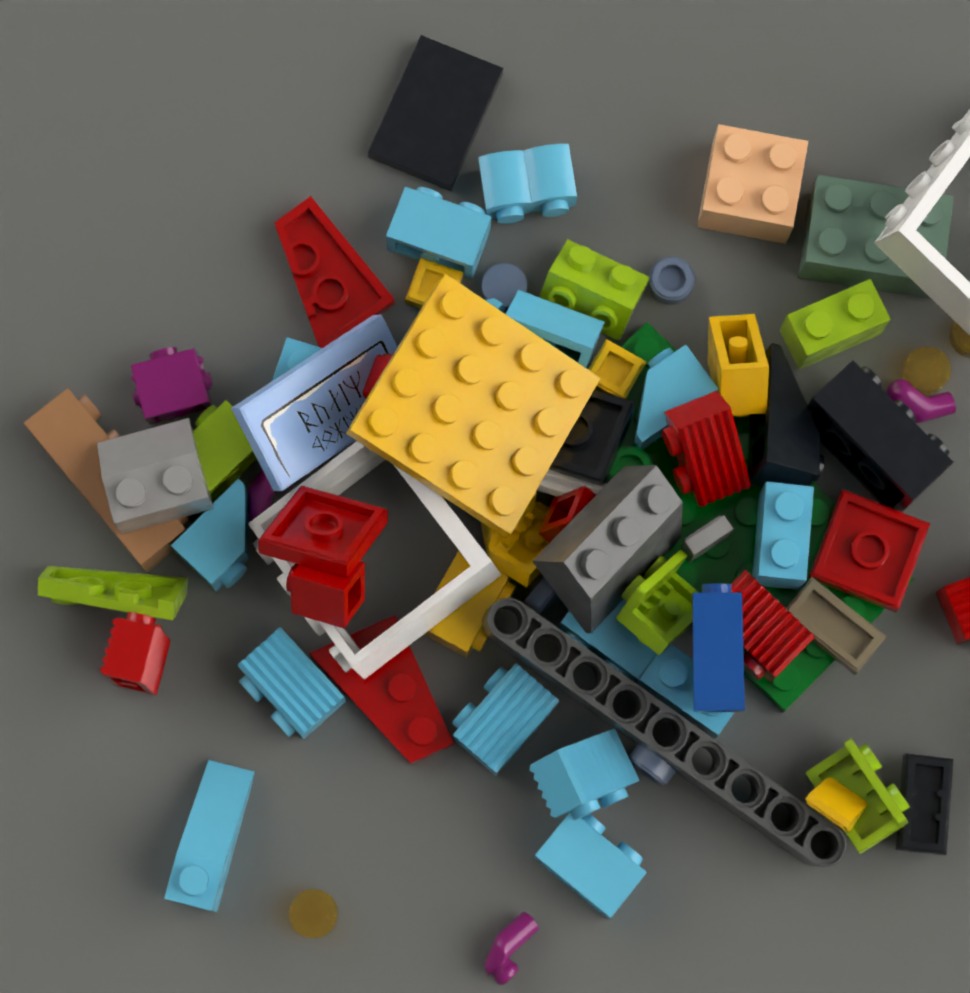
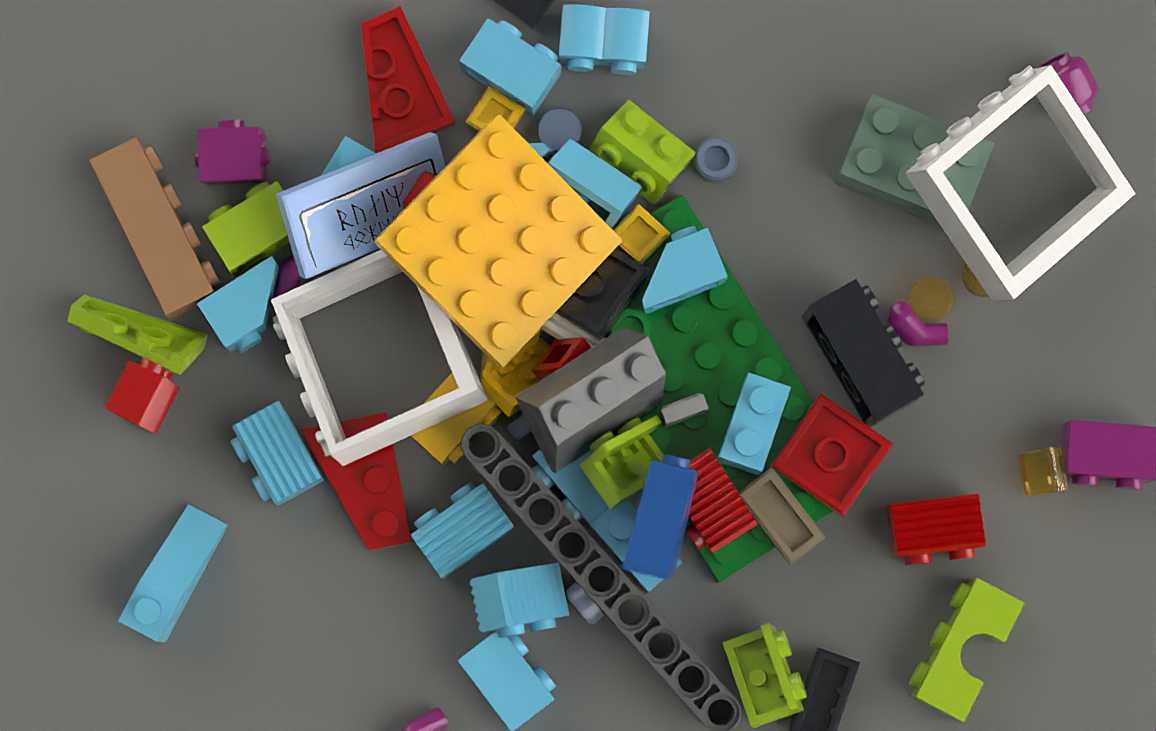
camera: 15 degrees right, 5 degrees up
(153, 476) = (194, 237): light grey slope -> none
(313, 913) = (250, 664): clear yellow tile -> none
(323, 531) = (333, 325): red tile -> none
(326, 595) = (324, 377): red brick -> none
(706, 448) = (702, 328): red brick -> none
(738, 363) = (753, 256): yellow brick -> none
(752, 184) = (812, 87): light nougat brick -> none
(785, 437) = (780, 324): black slope -> none
(834, 324) = (855, 237): lime brick -> none
(836, 803) = (741, 678): yellow slope -> none

